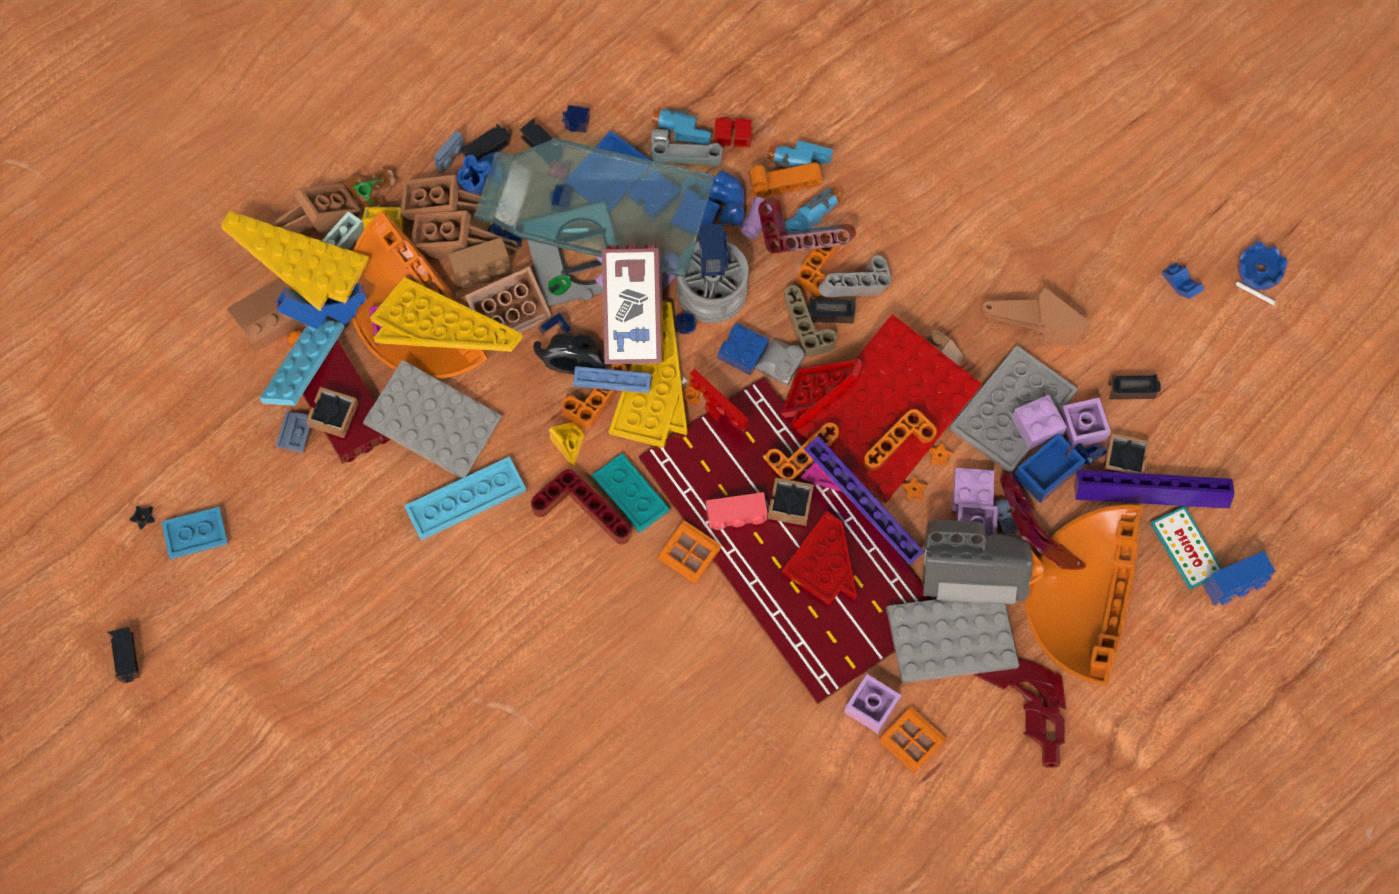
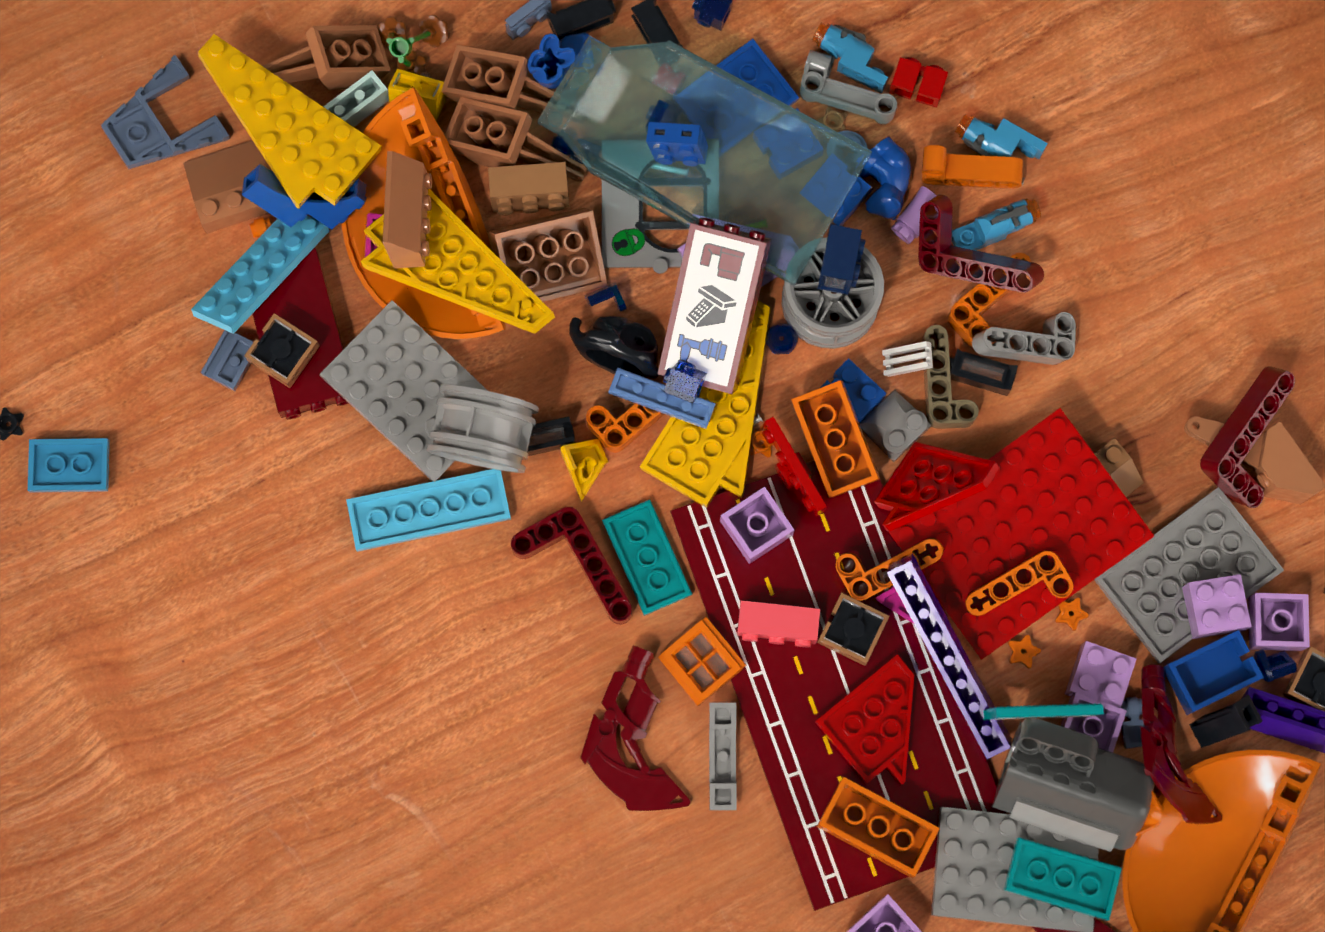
camera: 15 degrees right, 10 degrees up
(192, 297) = (139, 134): none -> sand blue wing
(398, 294) = (406, 211): none -> nougat slope
(491, 426) = (482, 428): none -> light grey wheel
(531, 429) = (551, 436): none -> black window
(577, 205) = (677, 143): none -> blue piece
(625, 361) = (684, 381): none -> clear blue brick
(669, 651) = (639, 788): none -> dark red piece
(703, 448) = (756, 525): none -> lavender brick
(722, 612) = (722, 756): none -> light grey slope
(742, 375) = (835, 439): none -> orange brick
(773, 308) = (889, 361): none -> white tile
(846, 630) = (878, 827): none -> orange brick
(954, 512) = (1043, 711): none -> teal tile
(986, 632) = (1062, 879): none -> teal tile
(1019, 304) = (1239, 434): none -> dark red beam
(1068, 496) = (1226, 722): none -> black window

